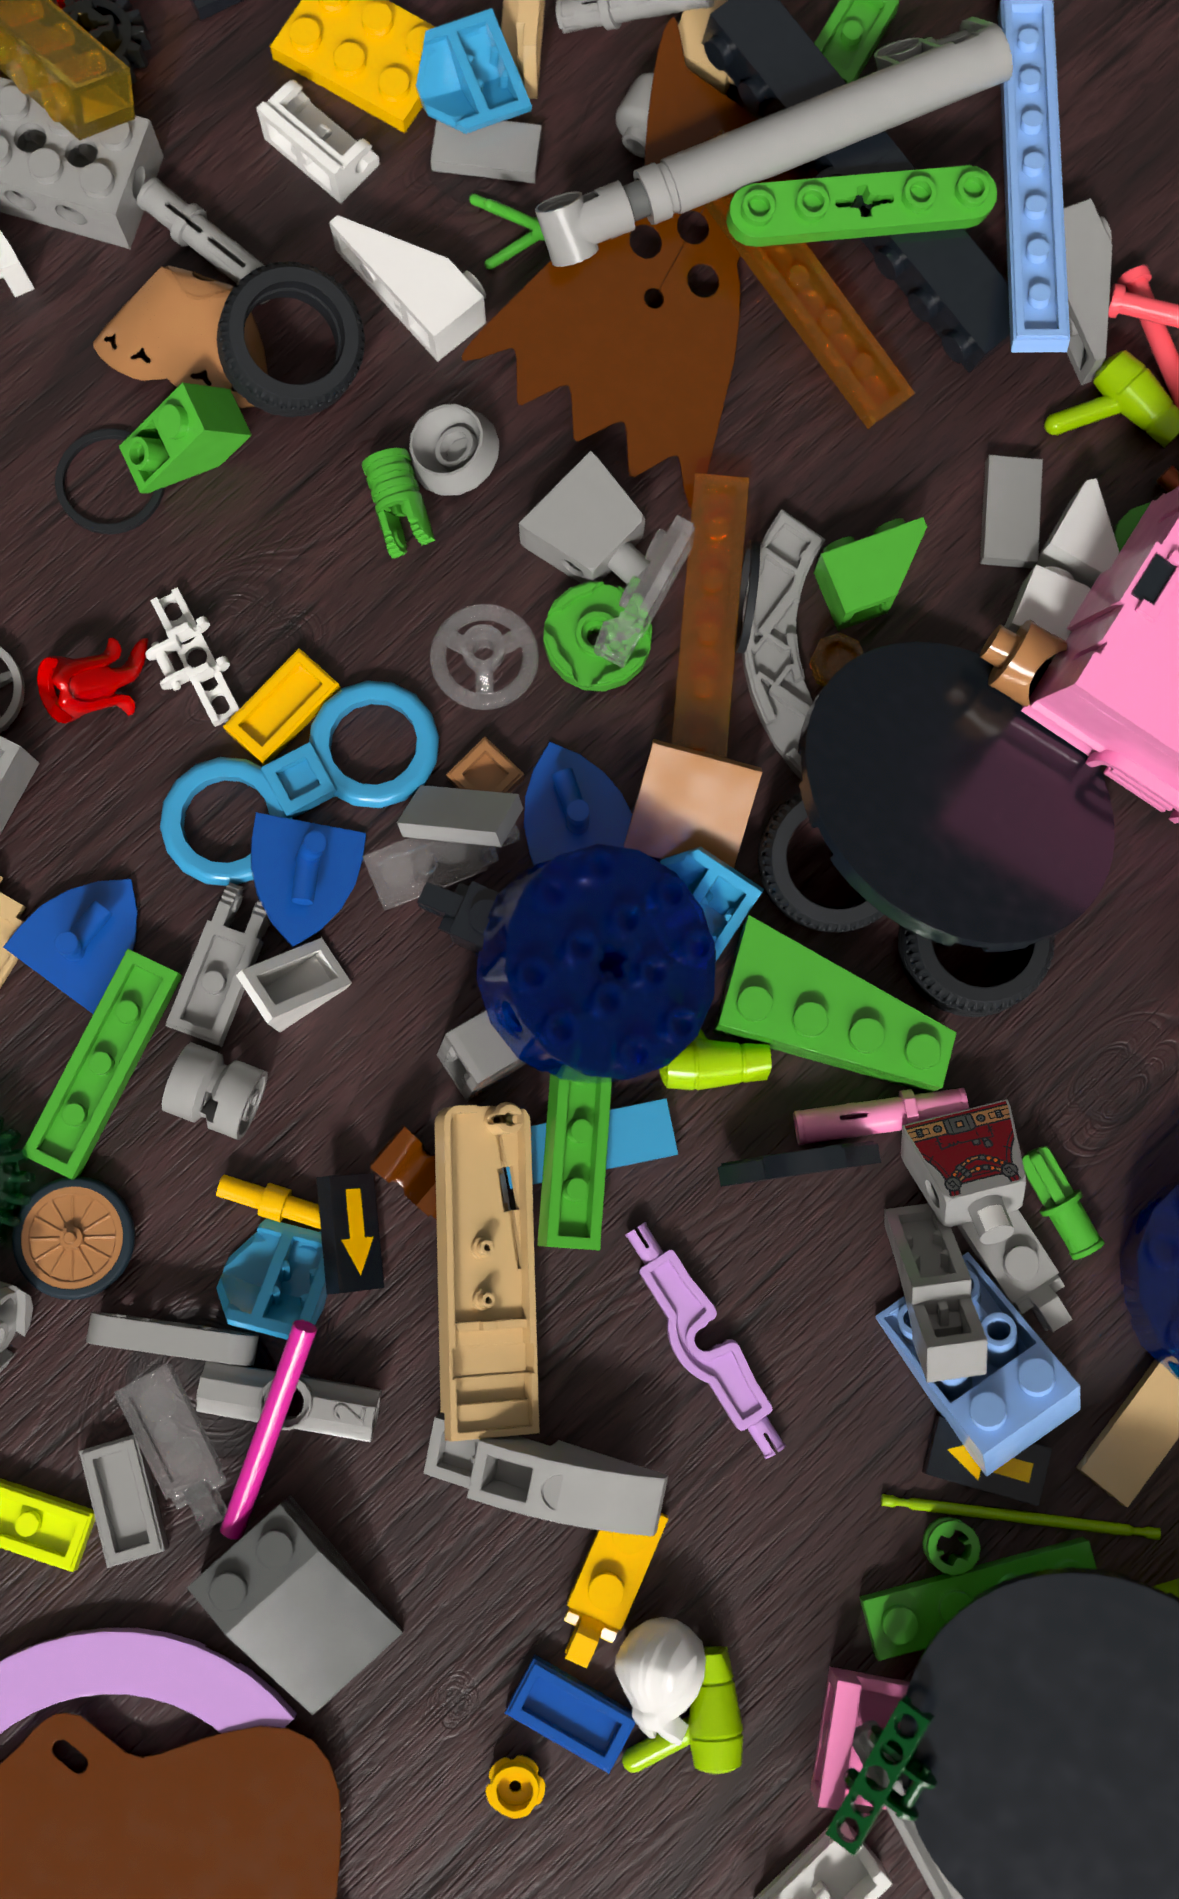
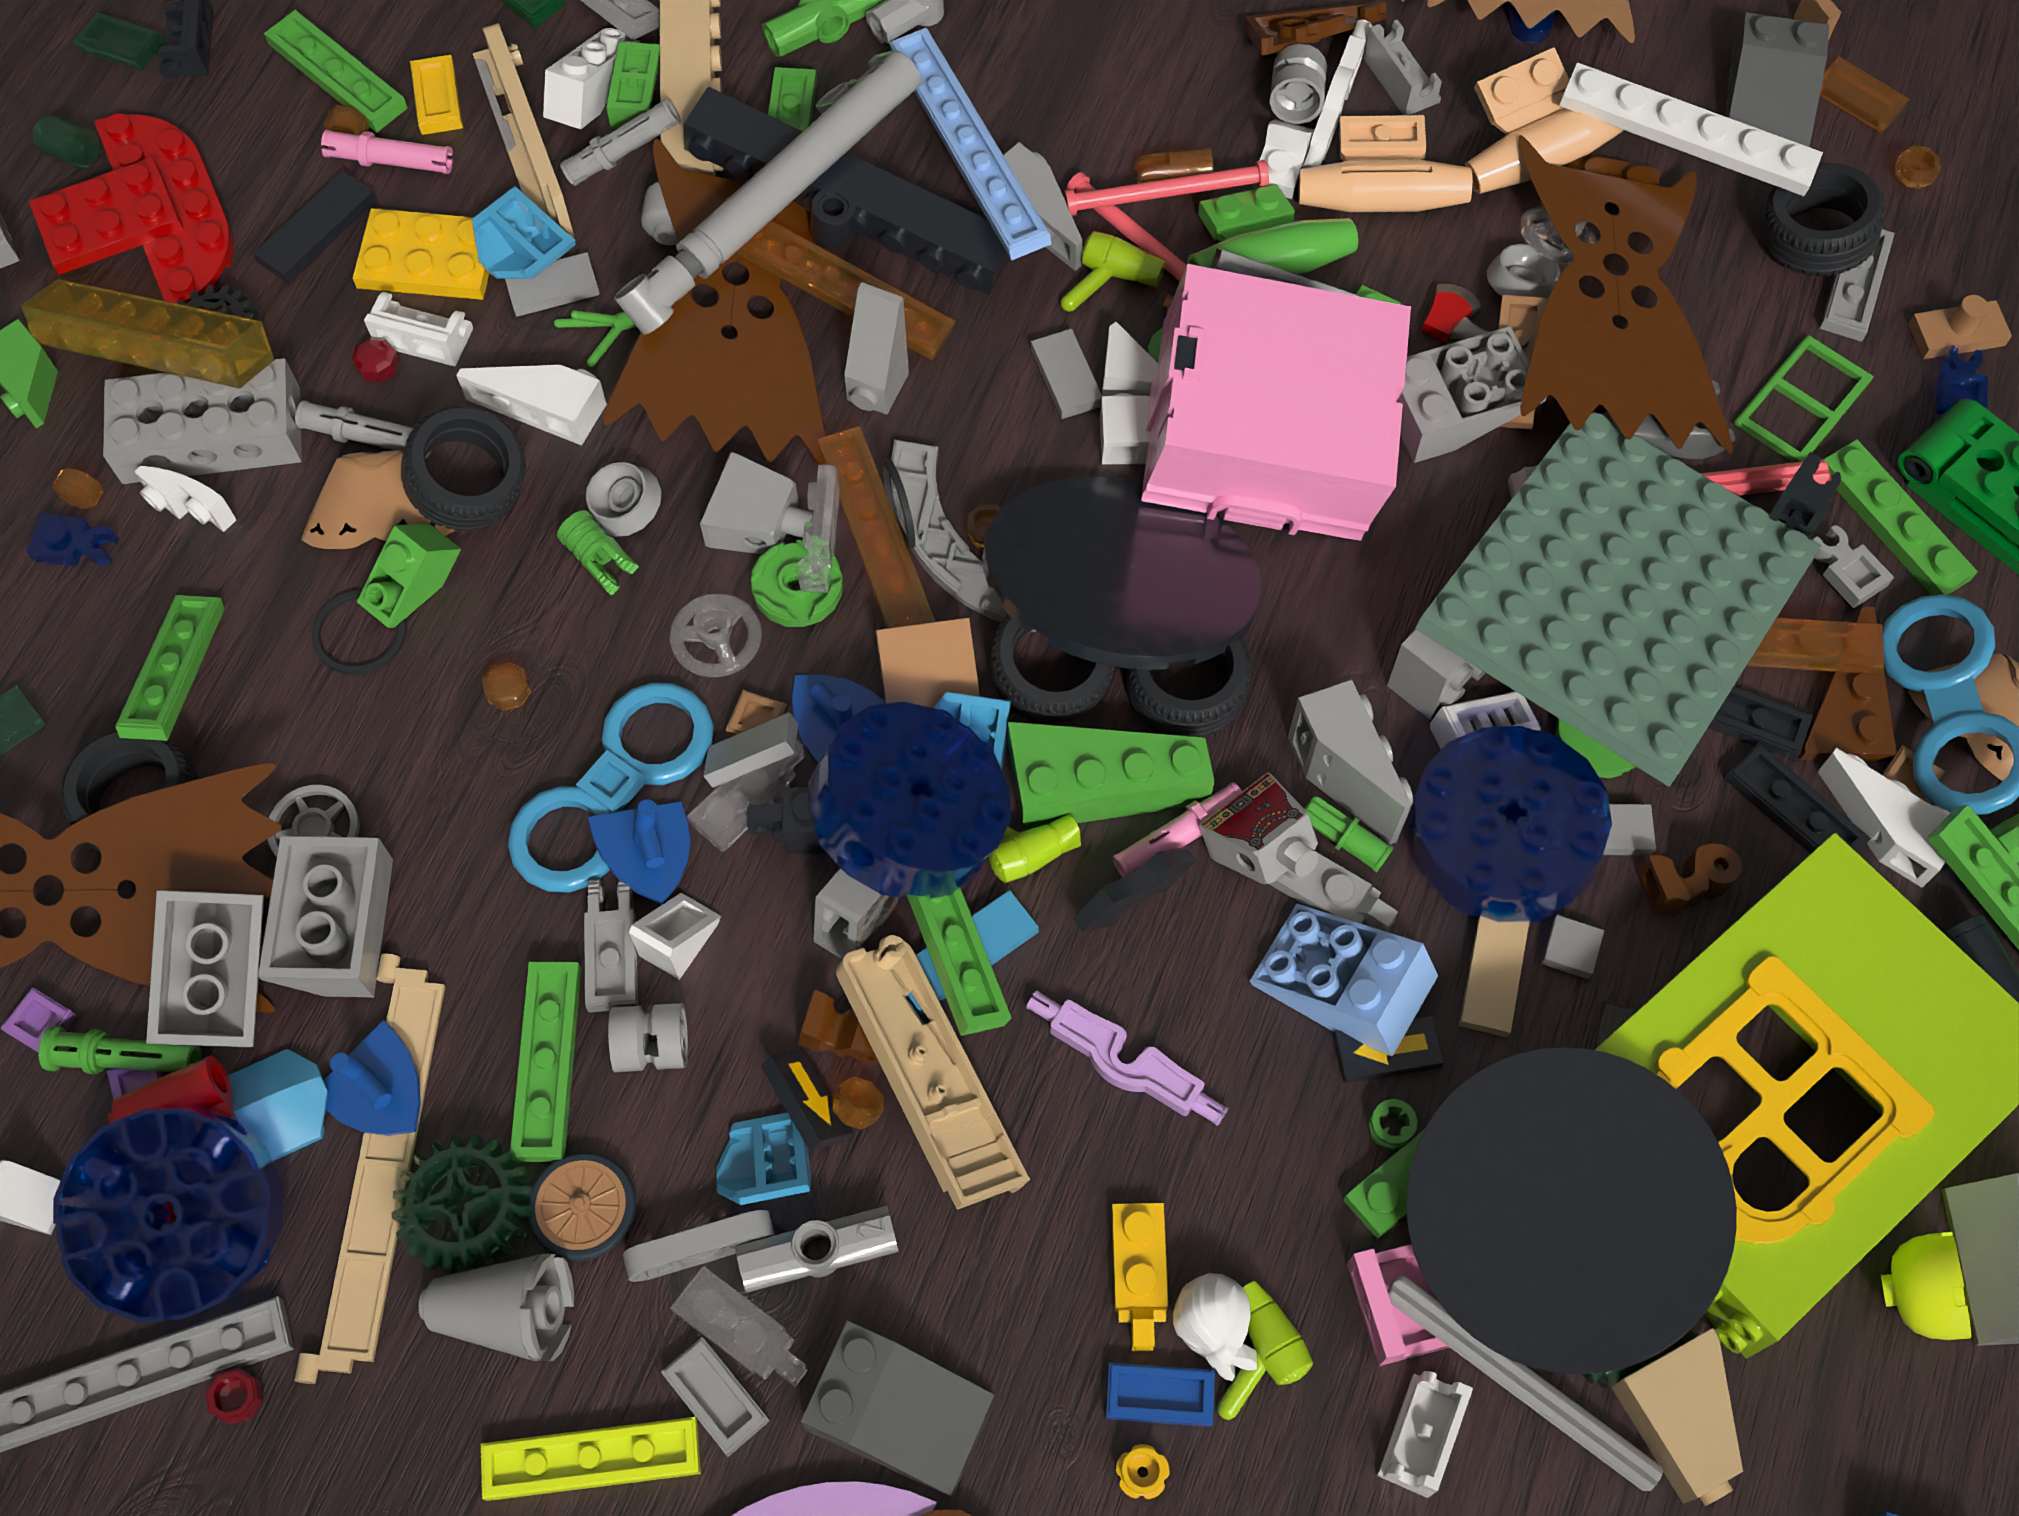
camera: 20 degrees left, 15 degrees down
(80, 938) = (484, 977): blue shield -> none
(89, 682) = (410, 779): red piece -> none
(179, 632) = (466, 715): white piece -> none
(236, 616) = (506, 686): none -> clear orange tile
(255, 158) = (375, 359): none -> dark red tile
(268, 1429) = (811, 1267): dark pink bar -> none
(271, 1201) = (732, 1106): yellow bar -> none
(281, 707) = (571, 737): yellow tile -> none
(401, 1261) = (858, 1103): none -> clear orange tile
(551, 1481) = (1050, 1208): light grey slope -> none
(806, 398) = (876, 350): none -> light grey slope
(807, 209) = (828, 220): bright green piece -> none
(866, 574) = (980, 456): bright green slope -> none
(902, 1750) = (1426, 1316): dark green piece -> none
(936, 1294) = (1282, 926): light grey slope -> none
(1018, 657) = (1119, 462): medium nougat piece -> none
(1020, 1517) = (1424, 1084): lime piece -> none
(1103, 1121) = (1348, 759): none -> light grey slope

